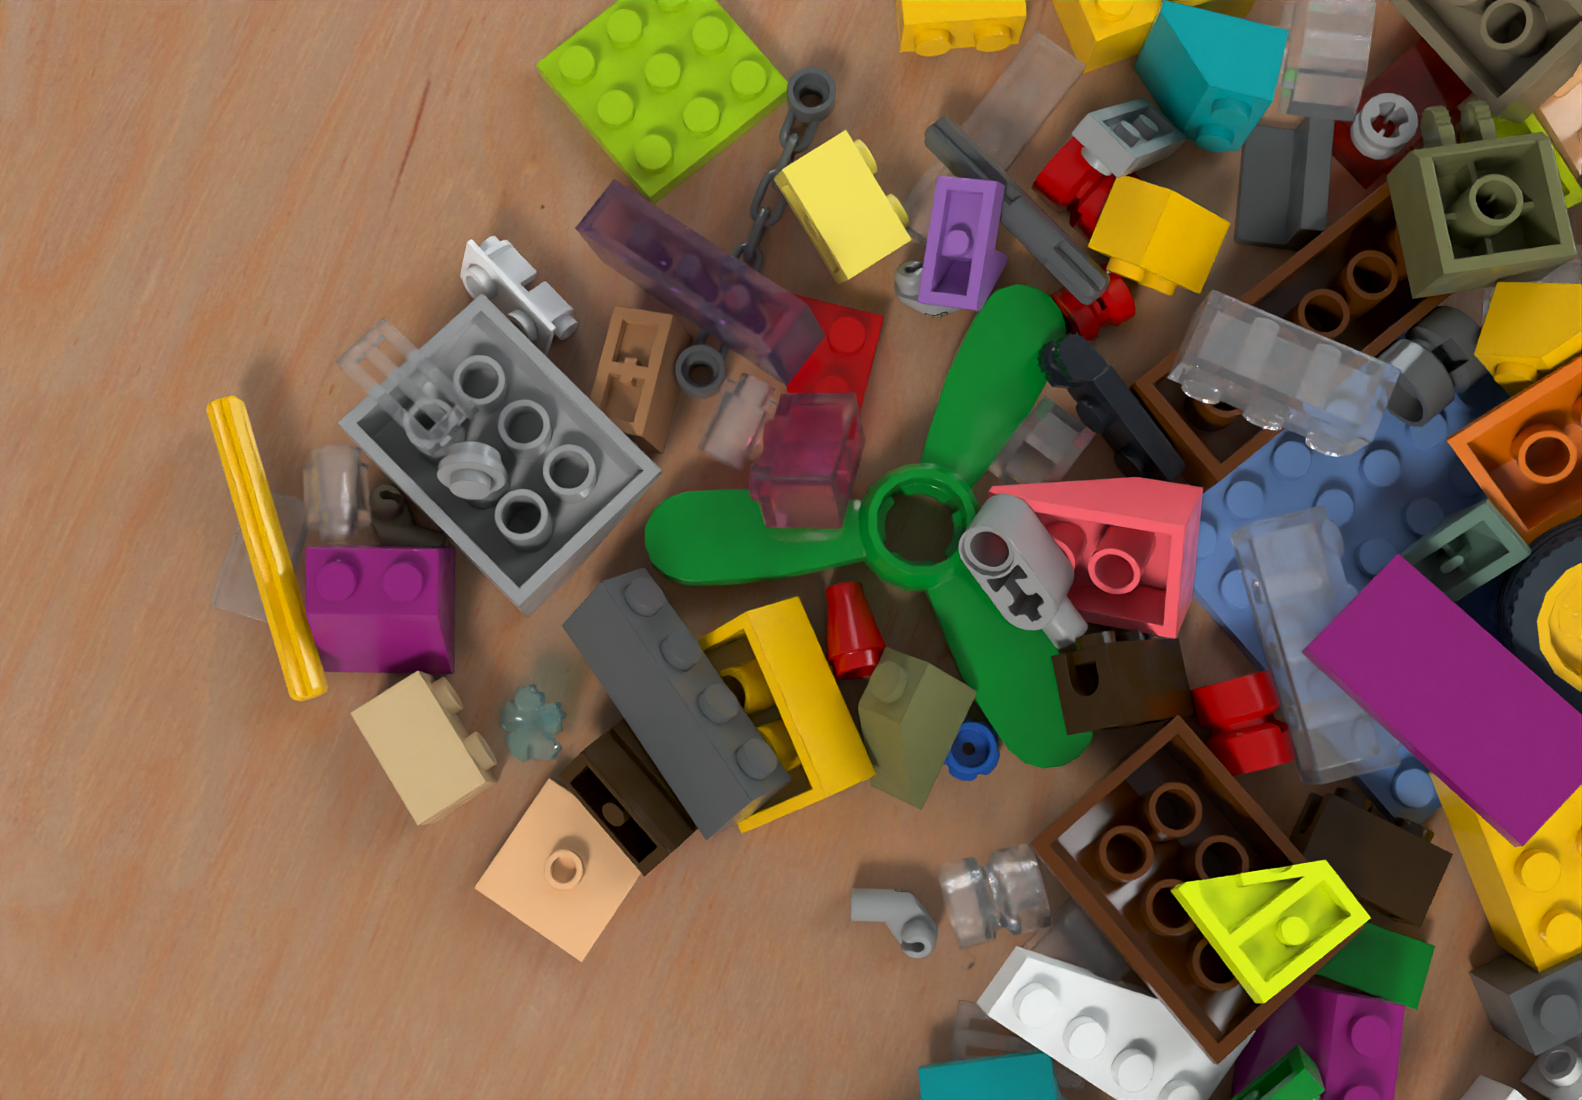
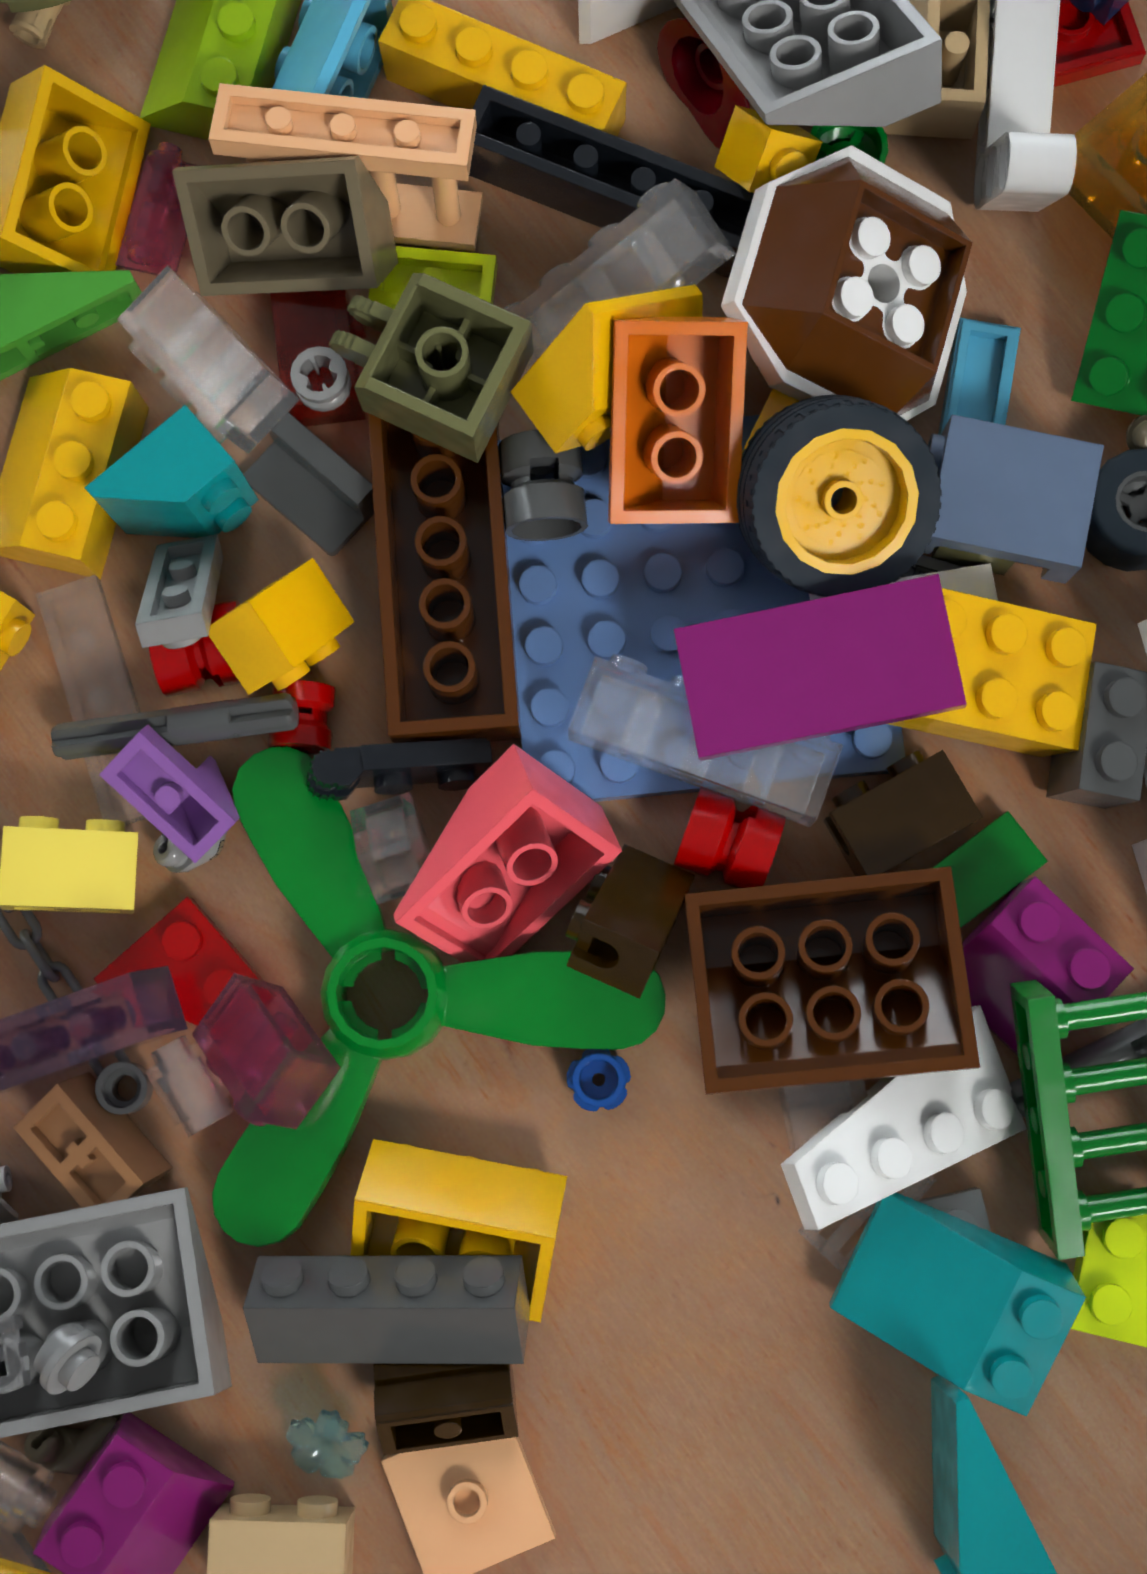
camera: 50 degrees left, 0 degrees up
(852, 632) = (438, 1112): red cone -> none
(901, 913) = (696, 1231): light grey arm -> none
(910, 723) = (544, 1118): olive slope -> none
(994, 895) = (731, 1147): clear wheel -> none
(1023, 570) = (478, 939): light grey piece -> none
(1272, 921) = (895, 942): neon yellow wing -> none
(1283, 375) = (466, 616): clear brick -> none
(1467, 550) = (711, 571): sand green slope -> none

